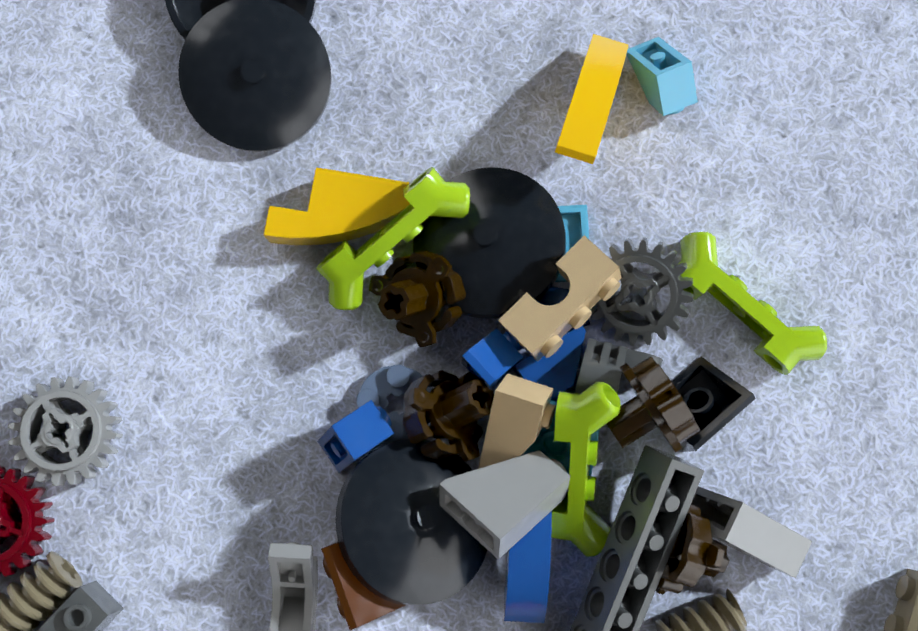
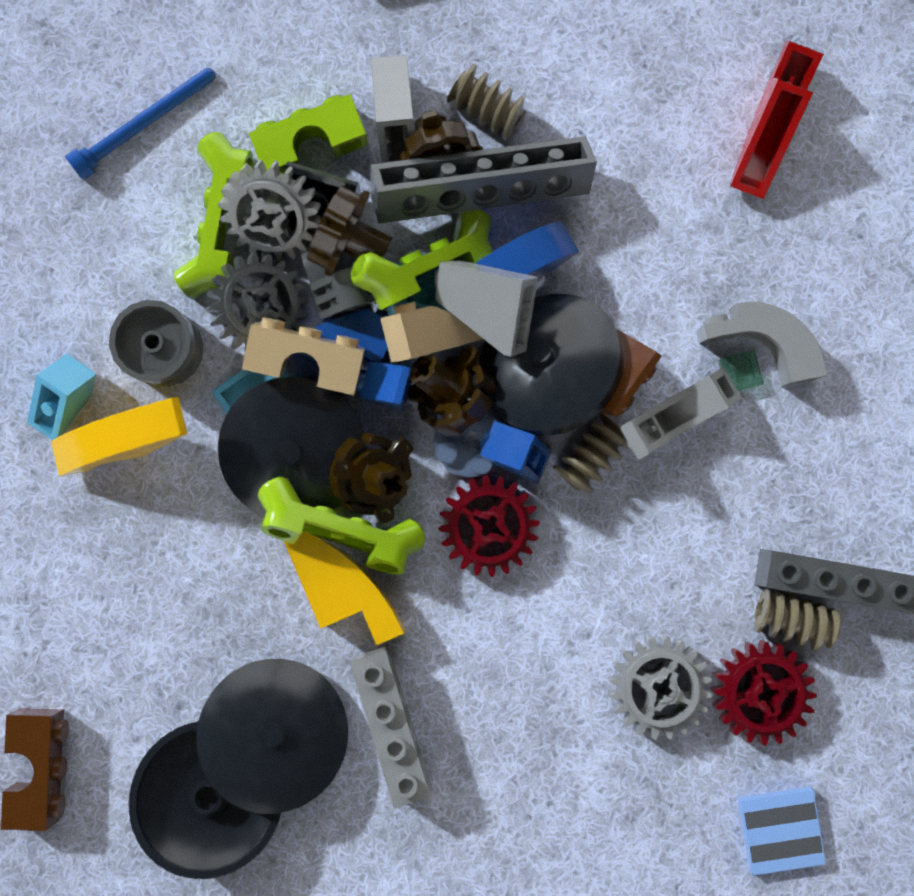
camera: 125 degrees left, 5 degrees up
(194, 176) = (391, 726): none -> light grey brick
(295, 340) = (498, 510): none -> dark red gear
(307, 506) = (593, 455): none -> dark tan piece
(655, 161) = (134, 341): none -> dark grey wheel
(726, 362) = (272, 194): none -> light grey gear
(780, 404) = (332, 121): none -> lime arch
(867, 222) = (86, 160): none -> blue piece

